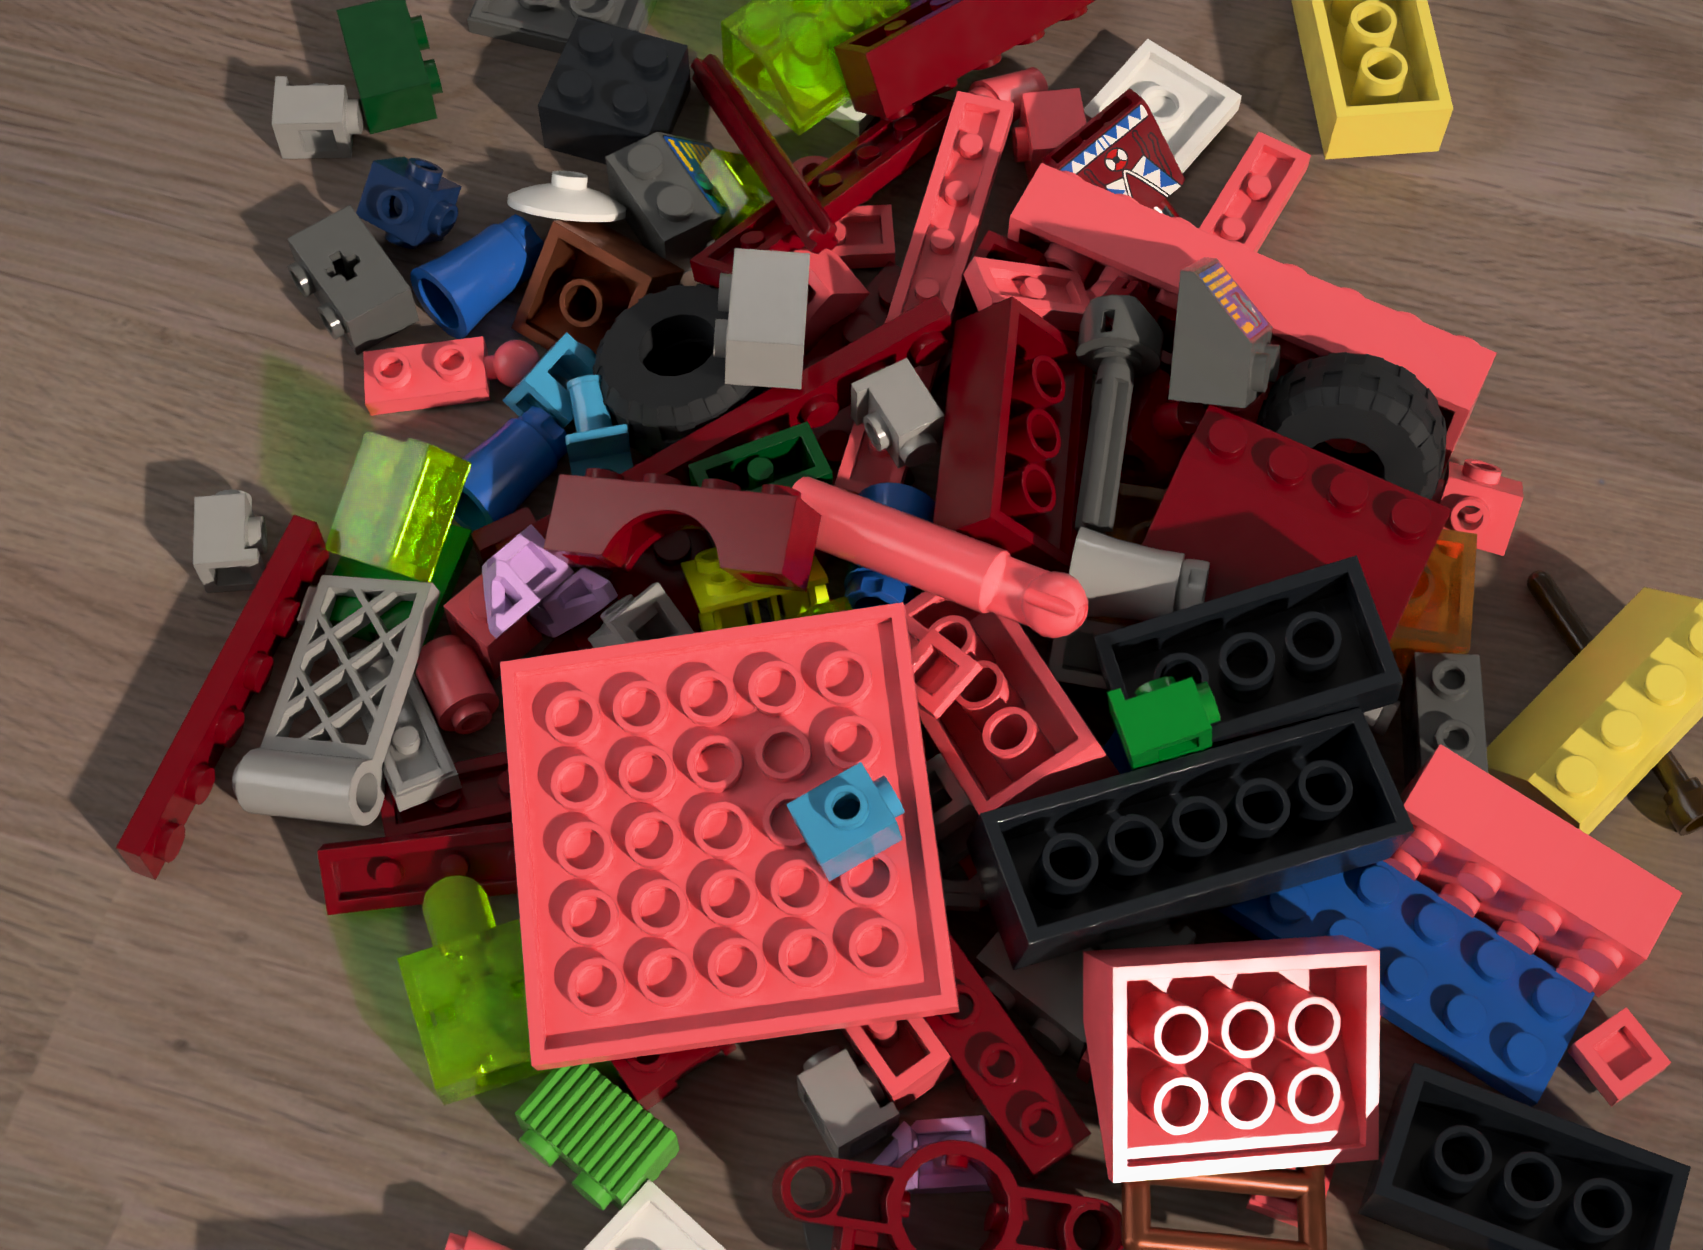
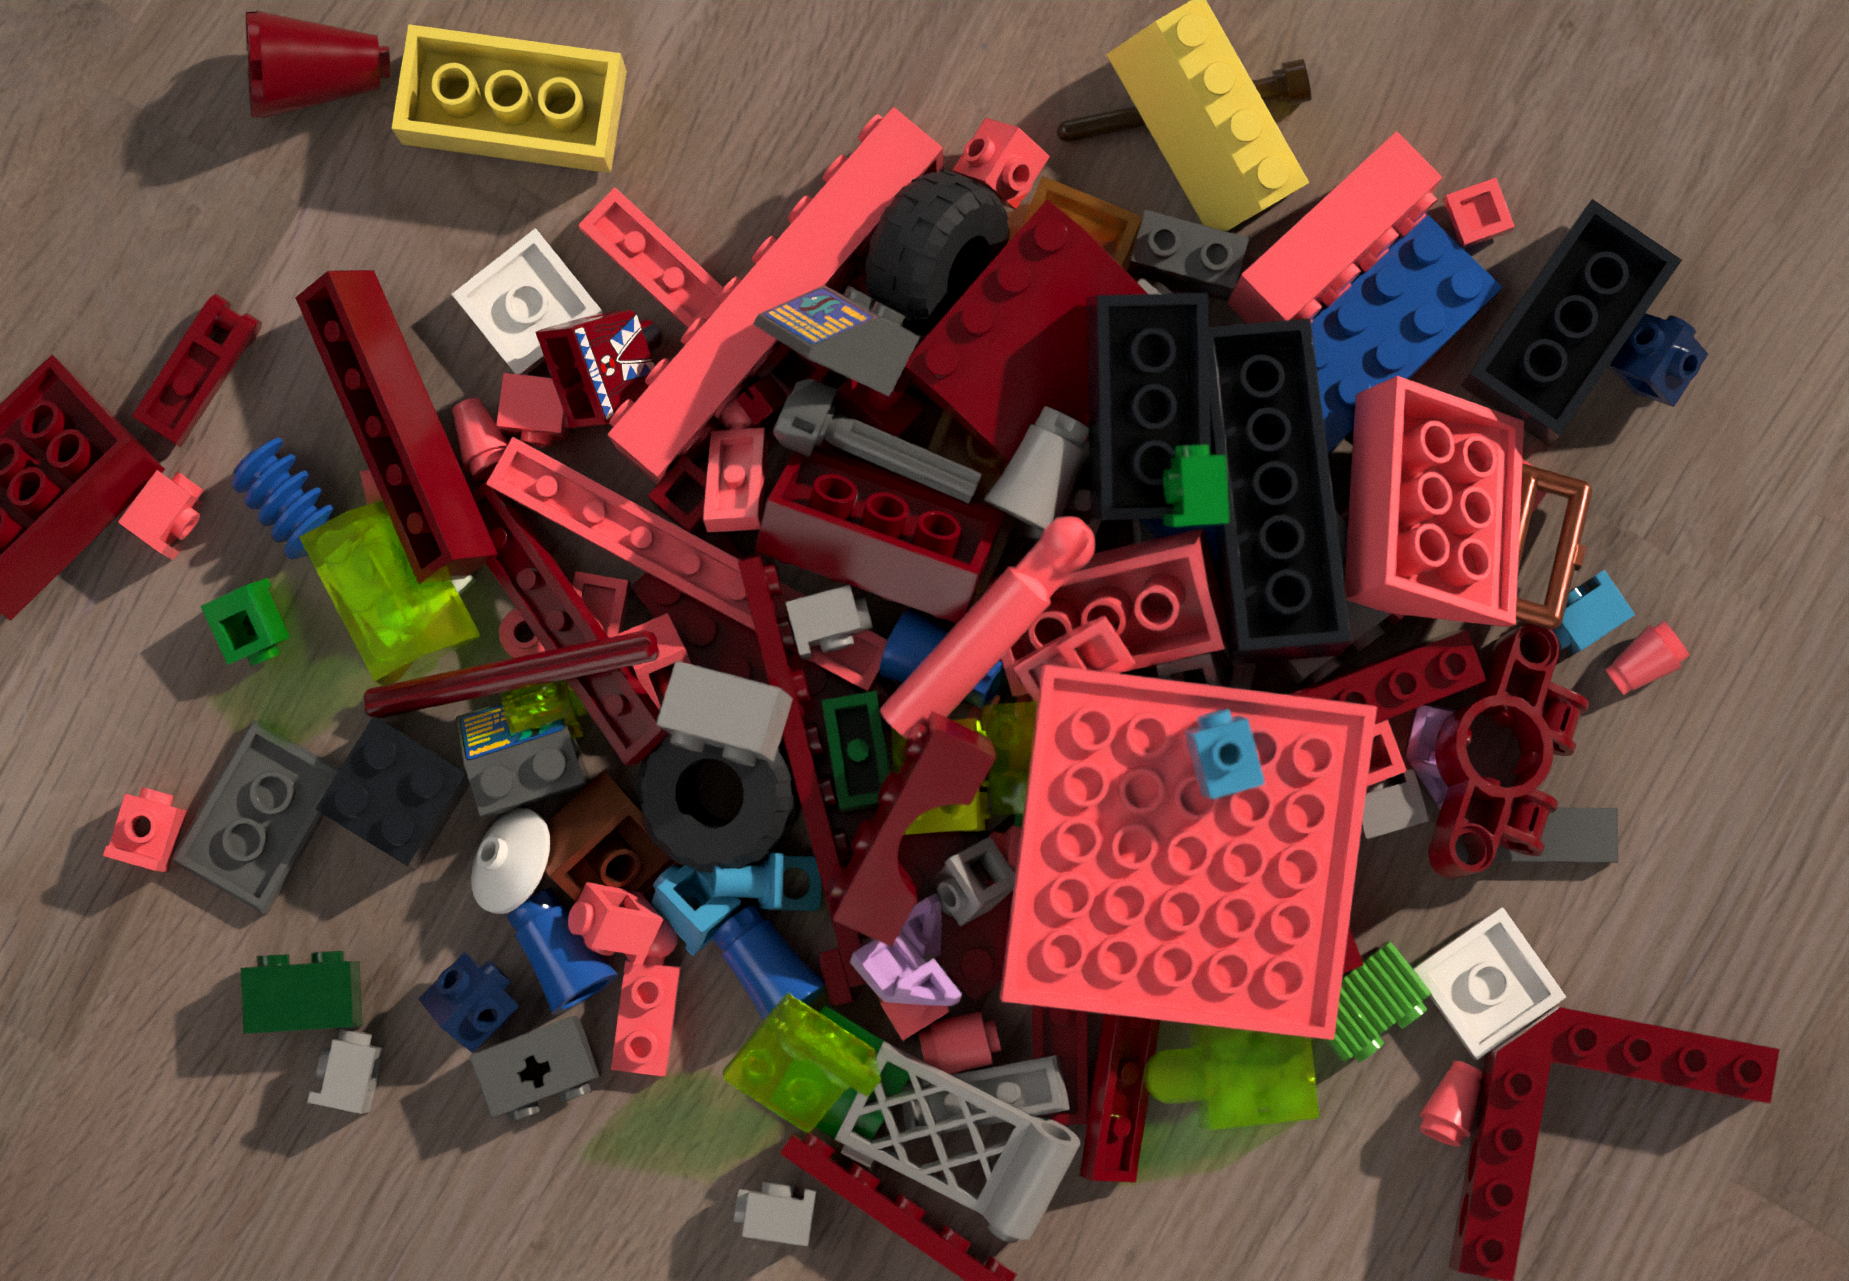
camera: 70 degrees left, 20 degrees up
(521, 305) = (615, 921): none -> coral brick

